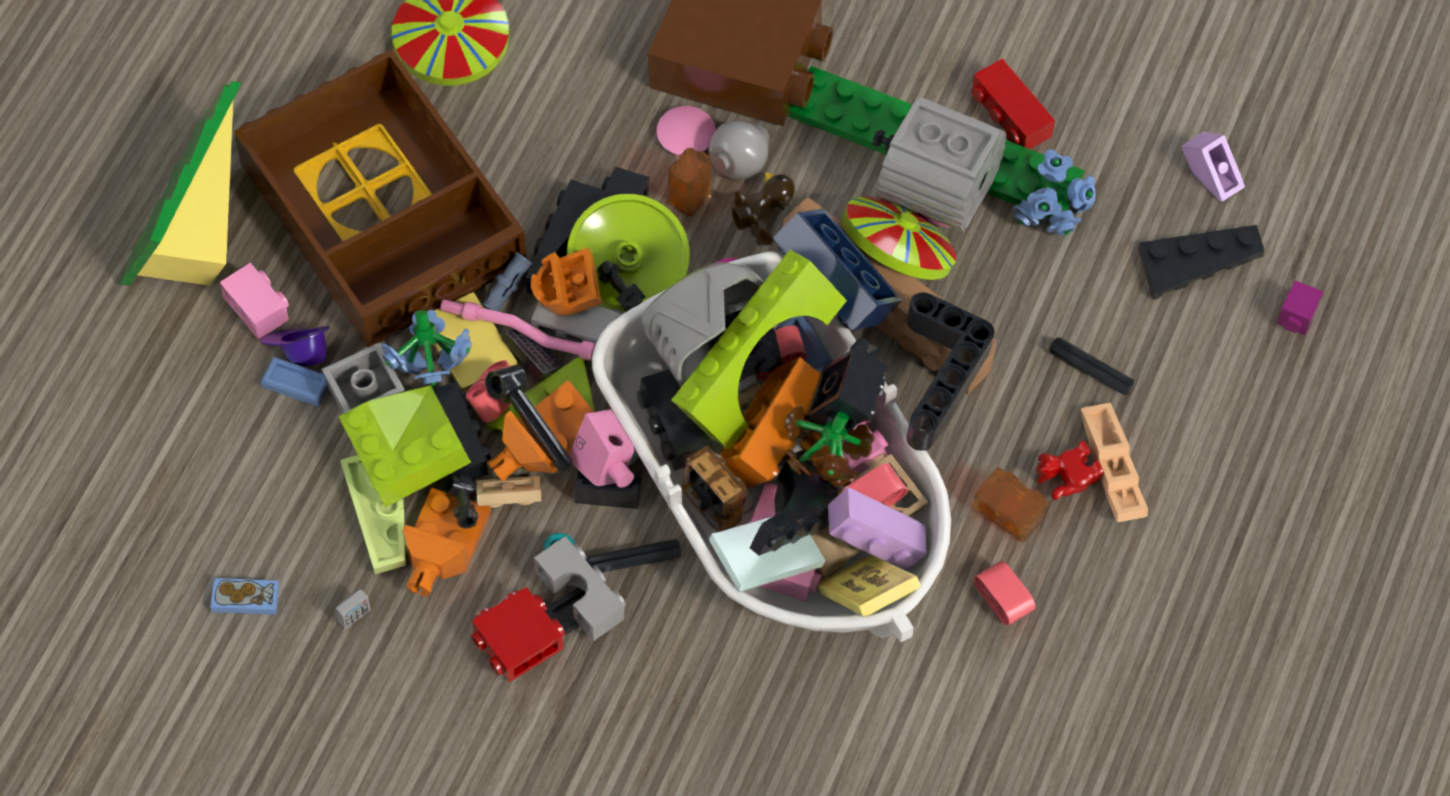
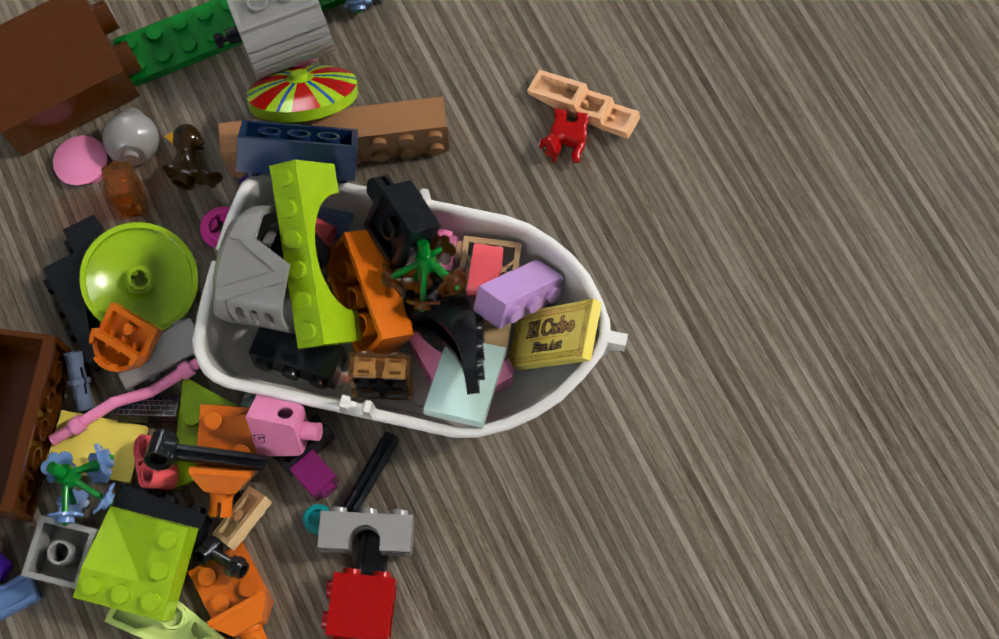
camera: 45 degrees left, 10 degrees up
(591, 515) = (315, 476): none -> magenta brick
(628, 296) = (173, 305): black bar -> none
(963, 340) = (427, 117): black beam -> none
(1004, 593) = (618, 251): coral beam -> none
(1011, 504) = (560, 192): clear orange brick -> none
(1092, 366) = (501, 58): black axle -> none

